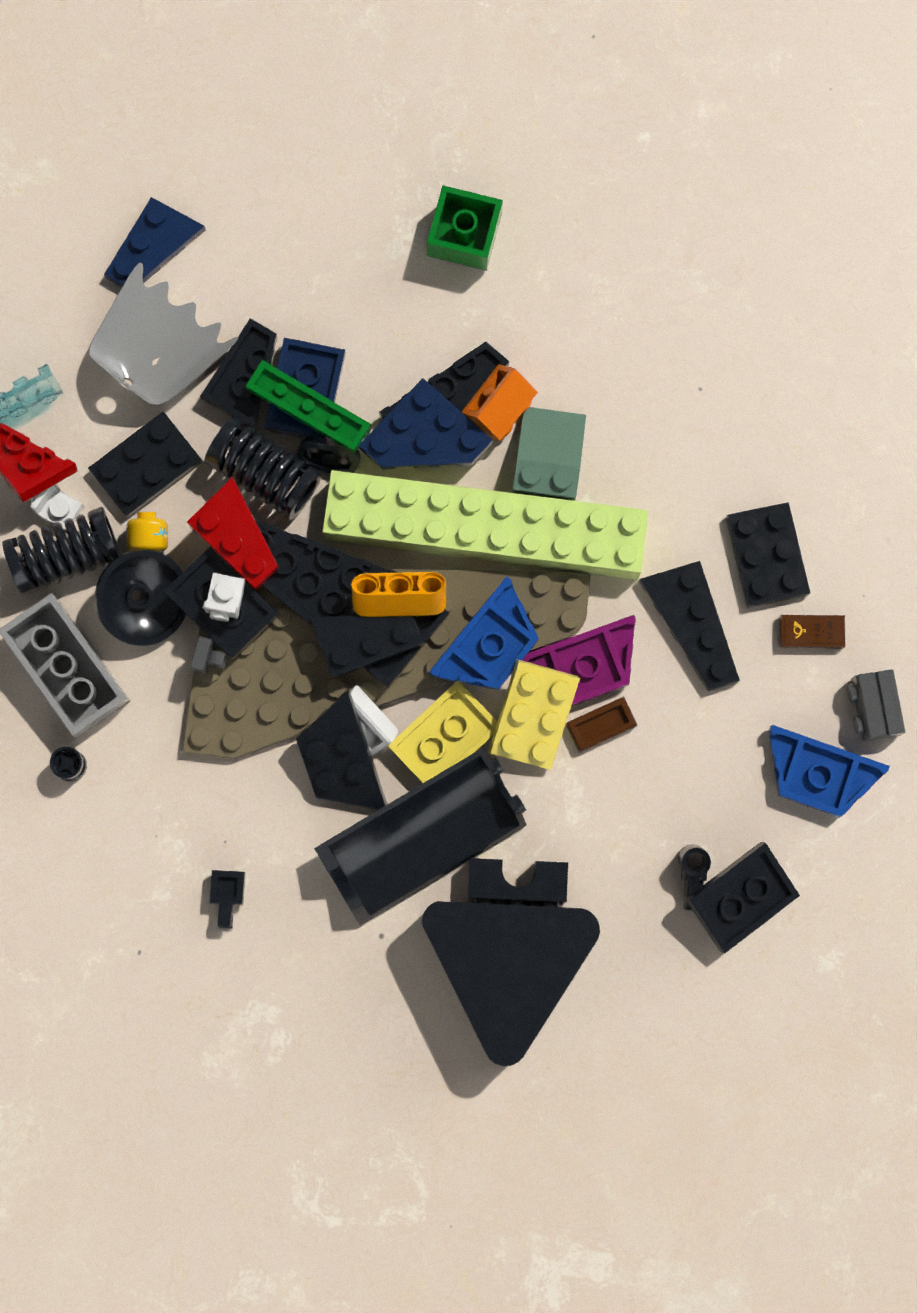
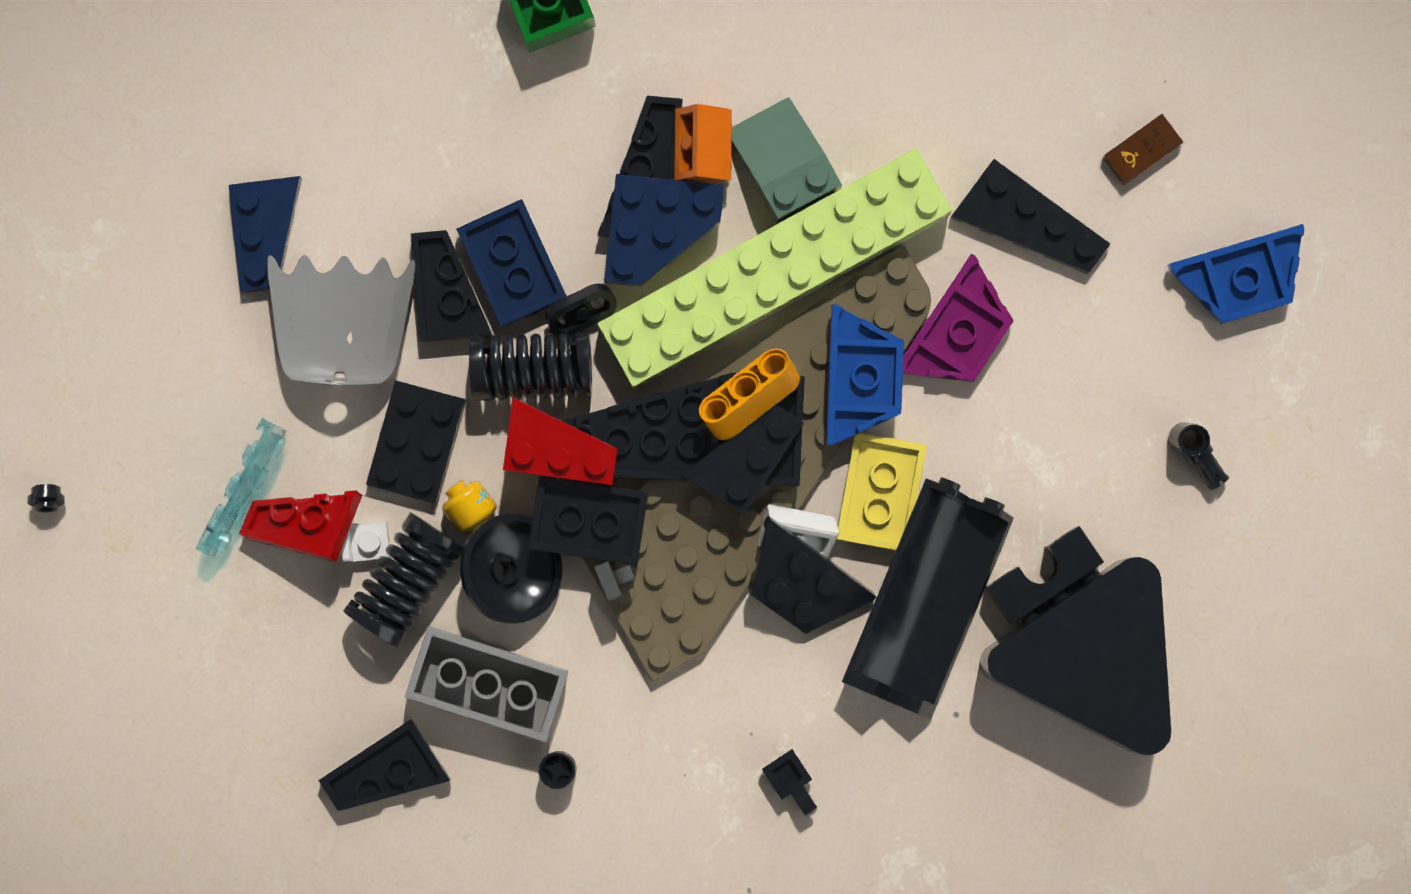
camera: 30 degrees left, 5 degrees up
(224, 597) = (589, 513): white bracket -> none
(308, 406) = (531, 279): green hinge -> none
(533, 714) = (949, 413): light yellow plate -> none
(601, 724) = (1014, 376): reddish brown tile -> none
(742, 897) = (1257, 441): black plate -> none
(767, 555) = (1051, 107): black plate -> none
(876, 705) = (1251, 177): dark grey brick -> none

